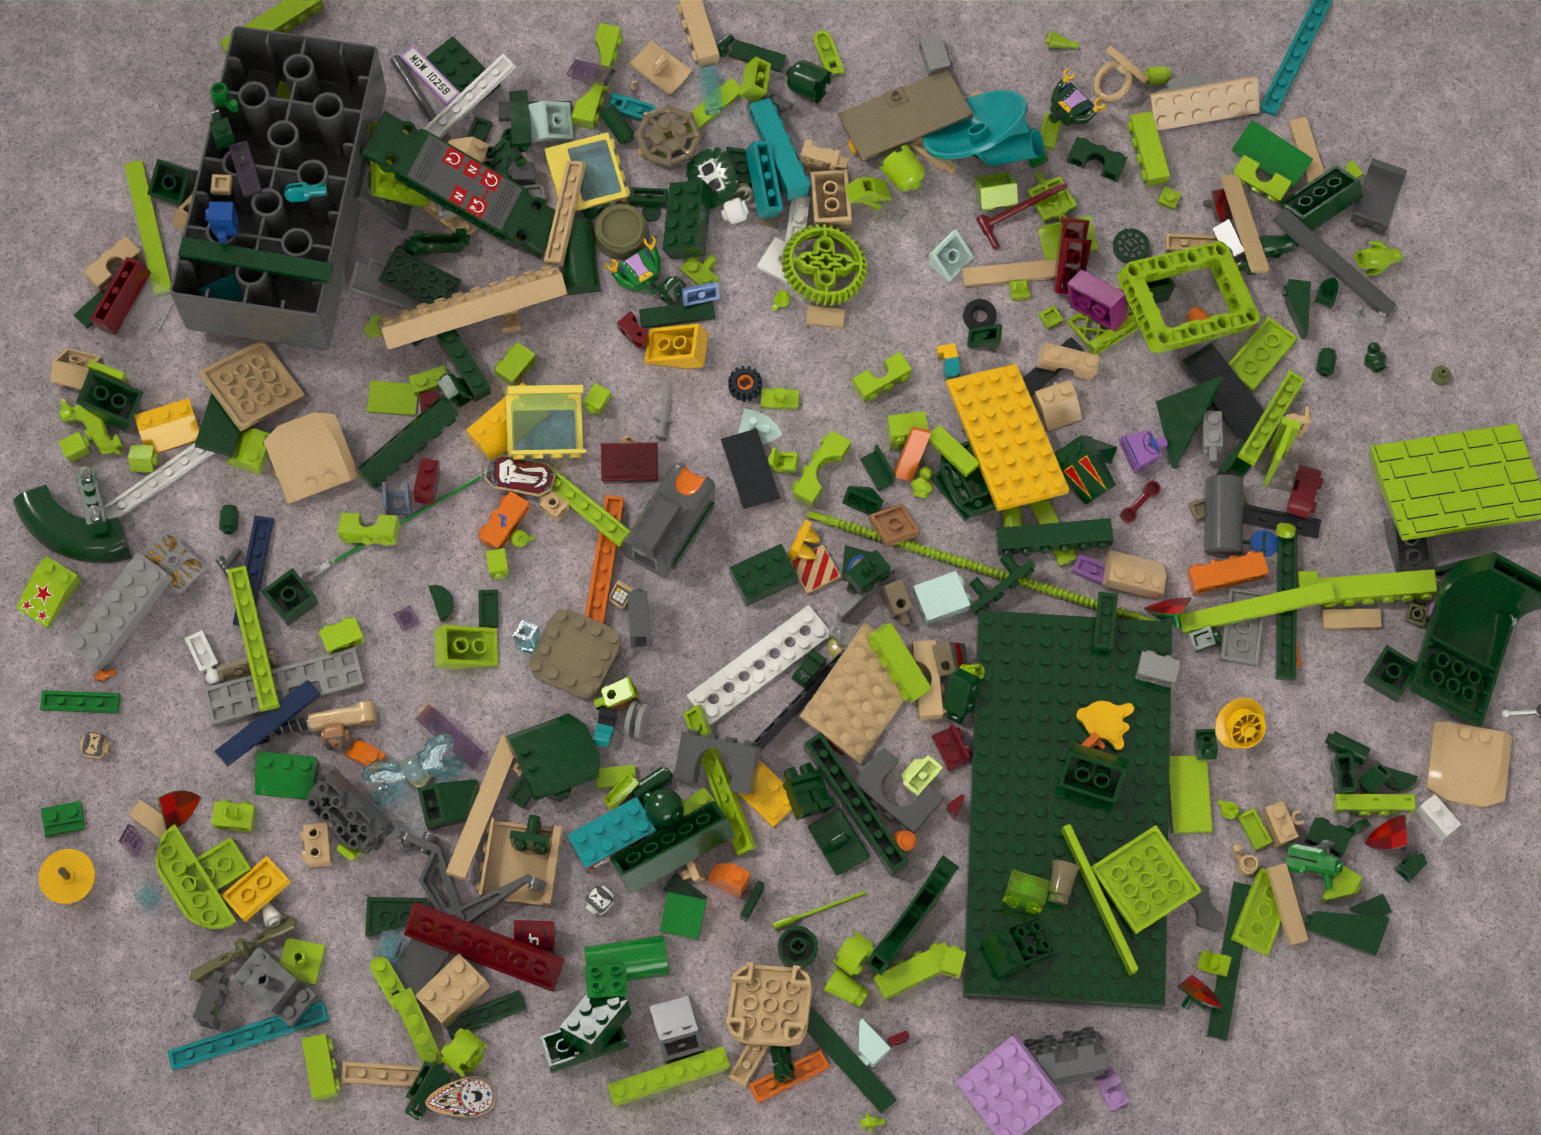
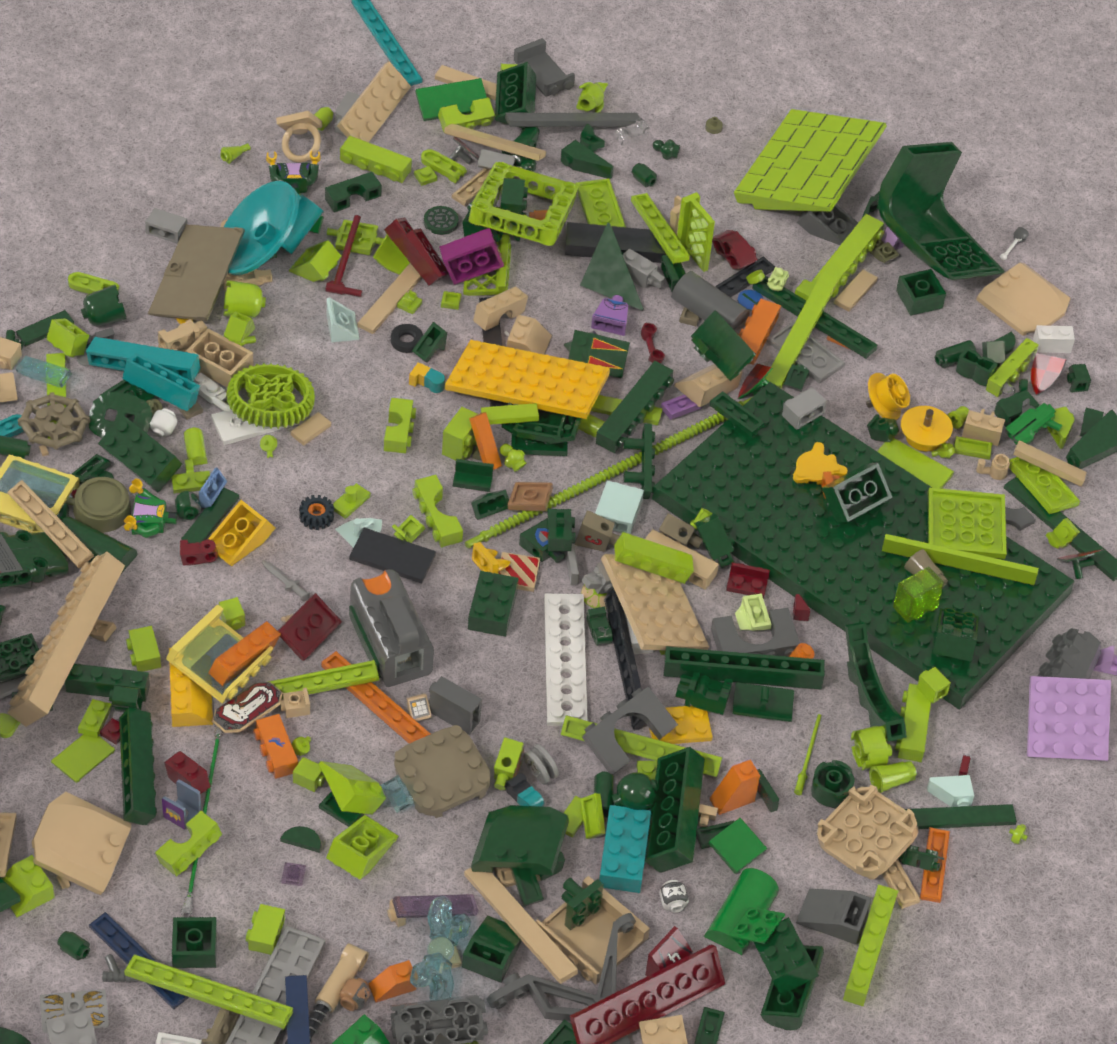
camera: 55 degrees left, 20 degrees down
(506, 600) = (352, 788): none -> lime slope
(560, 437) = (243, 653): none -> orange brick
(734, 251) = (195, 446): none -> lime brick
(1167, 558) = (722, 345): none -> dark green bracket
(1178, 292) = (513, 198): none -> dark green slope
(1191, 202) = (443, 165): none -> lime plate
(1234, 778) = (926, 427): none -> yellow piece
(1276, 795) = (958, 416): none -> lime bush
(1297, 550) = (777, 279): none -> yellowish green piece

